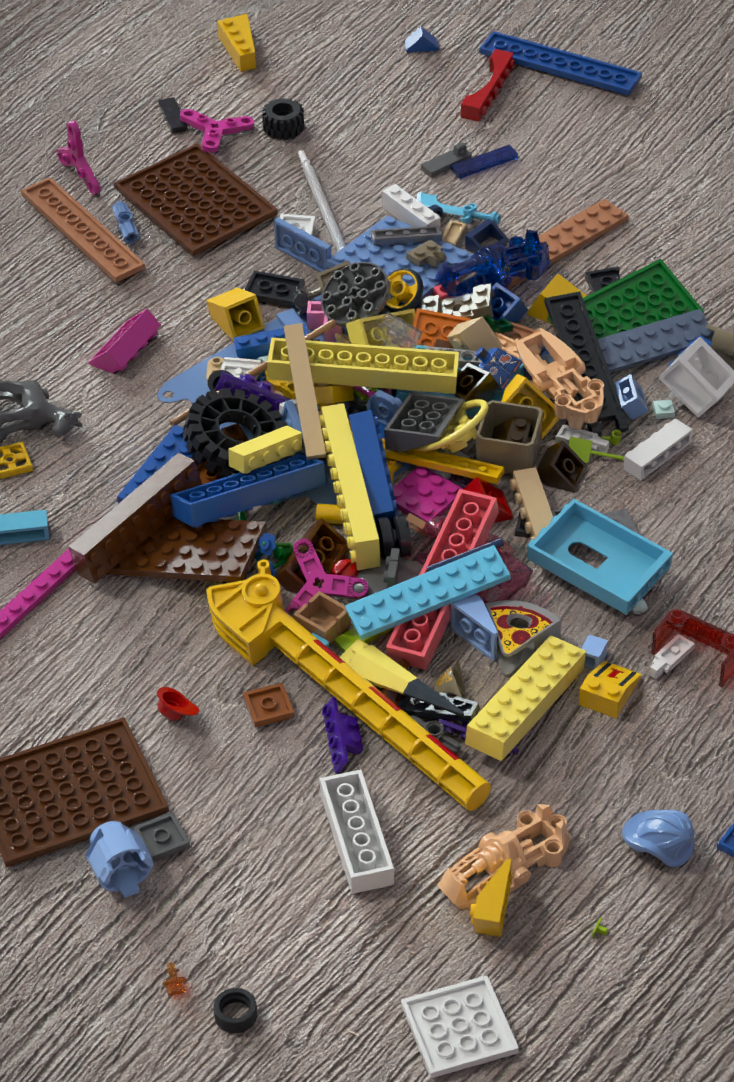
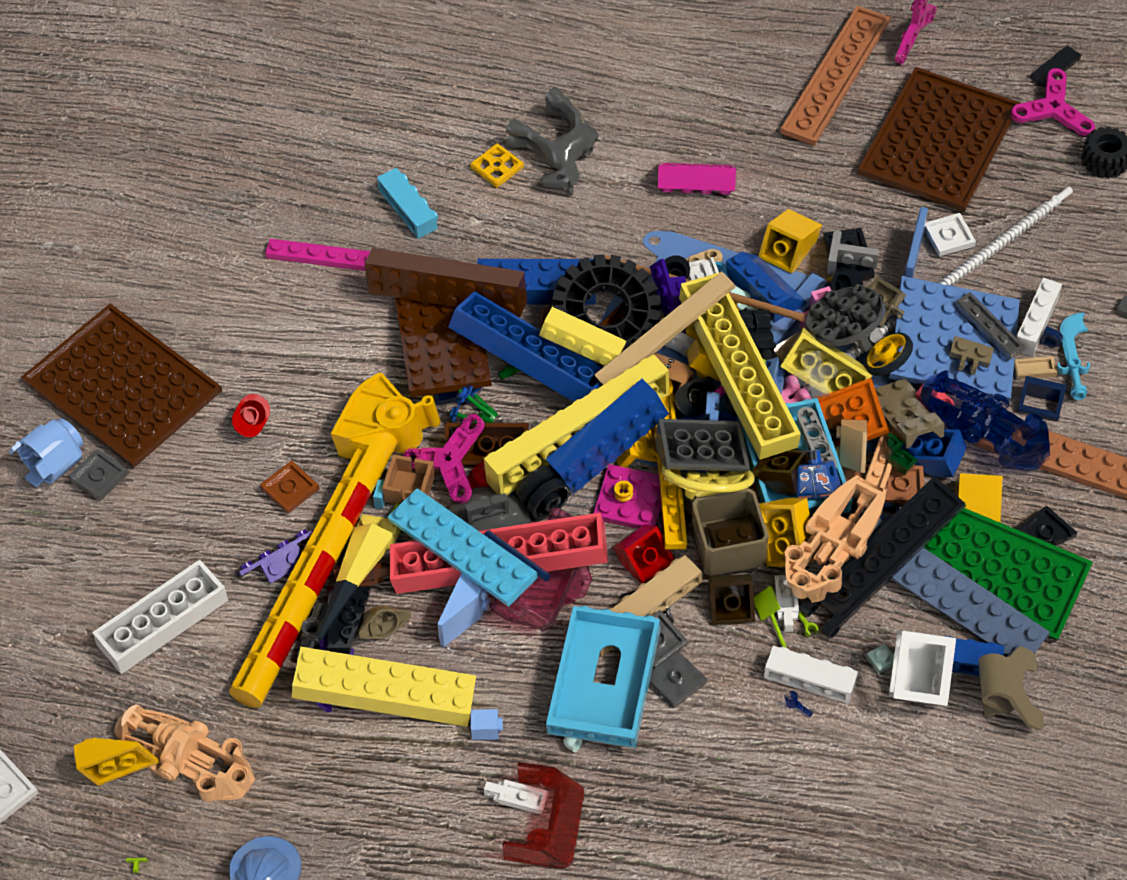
camera: 65 degrees right, 10 degrees up
(125, 222) = (865, 101): medium blue piece -> none
(278, 287) = (850, 254): none -> light grey bracket
(417, 524) = (556, 499): medium nougat plate -> none
(418, 488) = (621, 496): none -> yellow bush
(520, 631) = (469, 647): piece -> none
(608, 688) = (447, 756): yellow slope -> none
(631, 397) = (870, 620): medium blue brick -> none
(673, 469) = (796, 704): none -> clear blue hand

